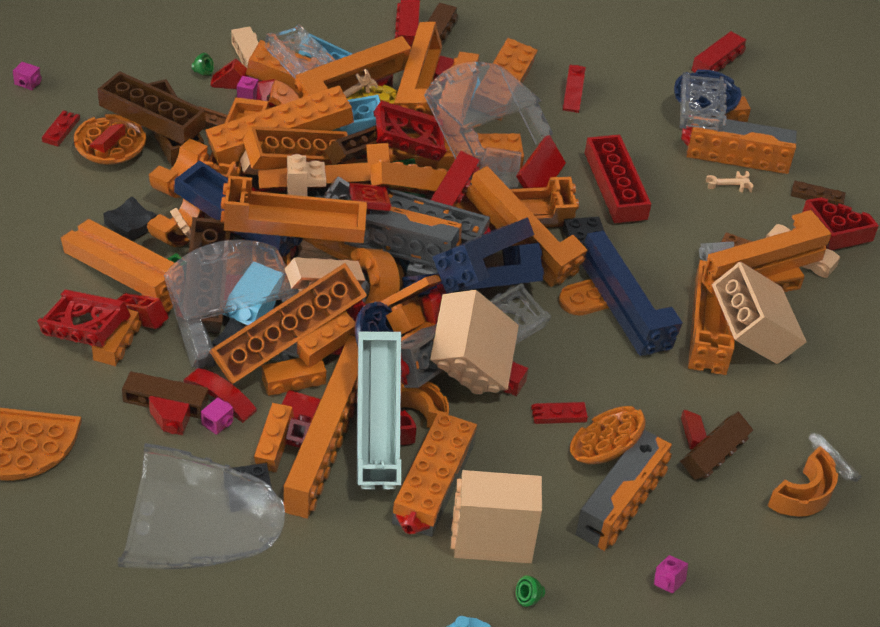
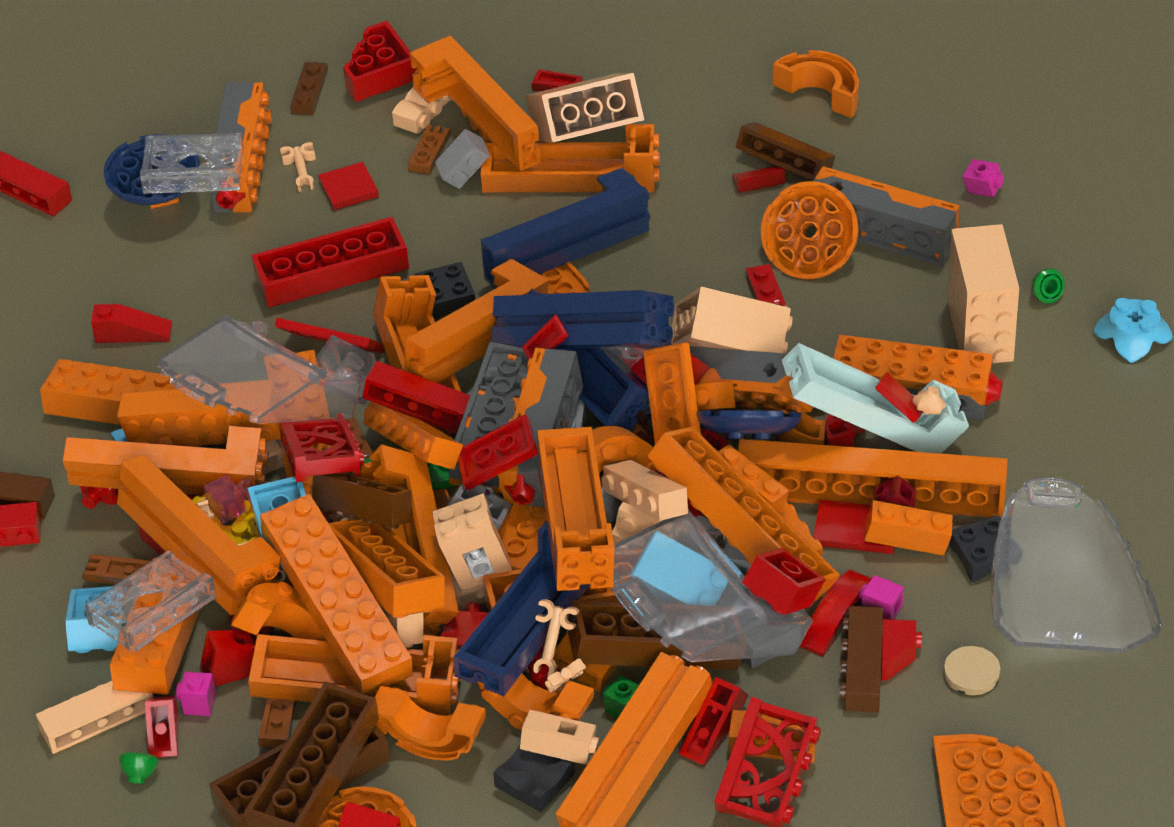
camera: 90 degrees left, 0 degrees up
(131, 455) = (972, 670): none -> tan tile
(136, 225) = (559, 737): none -> light nougat brick
(210, 211) = (557, 617): none -> light nougat bar
(210, 325) = (783, 581): none -> red brick
(371, 446) = (929, 401): none -> light nougat piece
(380, 429) = (898, 397): none -> red tile
(383, 89) = (226, 498): none -> clear pink brick
(472, 234) = (548, 337): none -> red tile
(706, 202) = (348, 185): none -> red tile
(820, 328) = (548, 80): none -> red tile
(847, 470) = (752, 76): clear plate -> none

